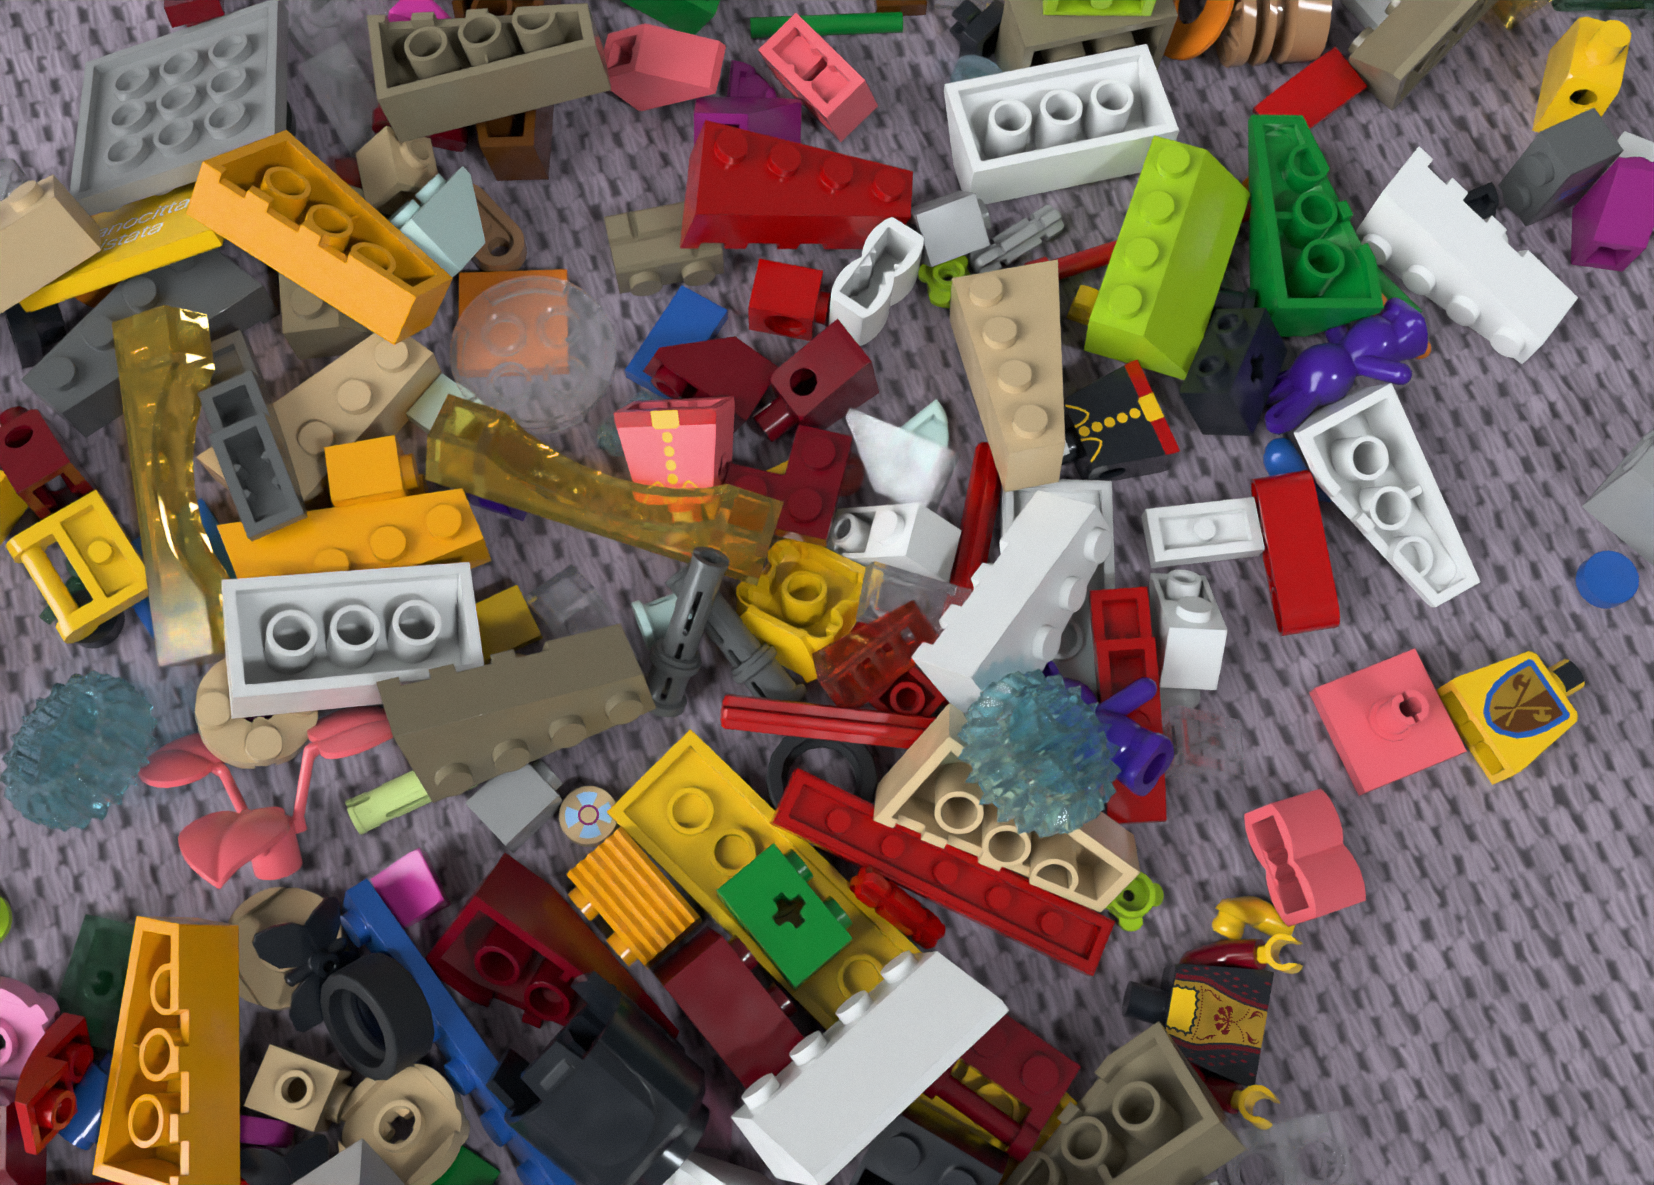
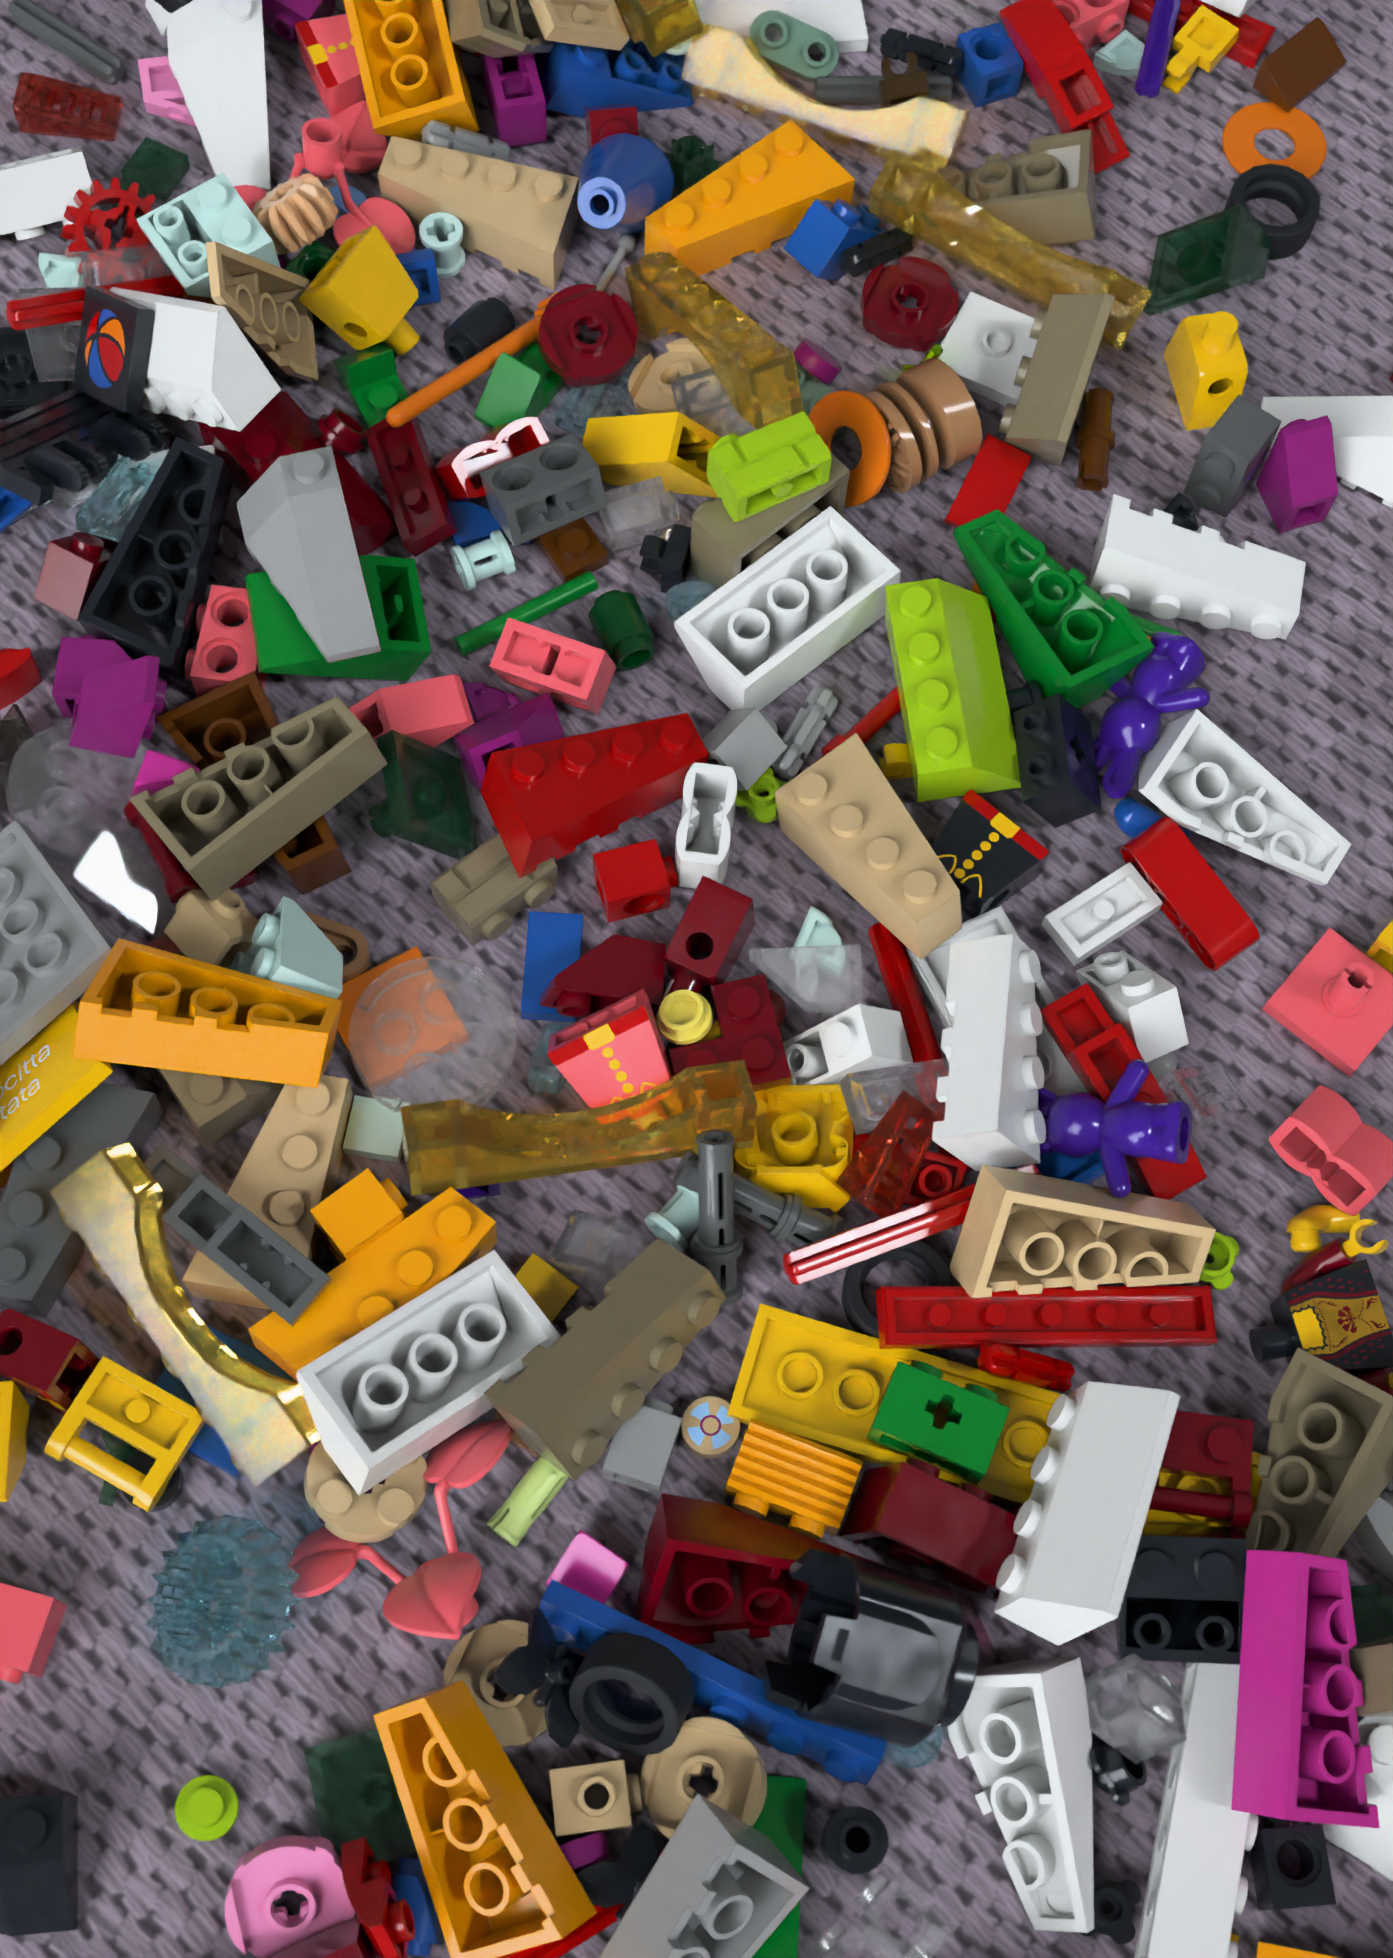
camera: 25 degrees left, 5 degrees down
(641, 139) = (424, 797): none -> clear green tile
(759, 440) = (684, 1017): none -> light yellow plate
(901, 75) = (622, 629): none -> dark green brick
(1039, 753) = (1099, 1200): clear light blue gear -> none
(1437, 98) = (1095, 440): none -> reddish brown pin

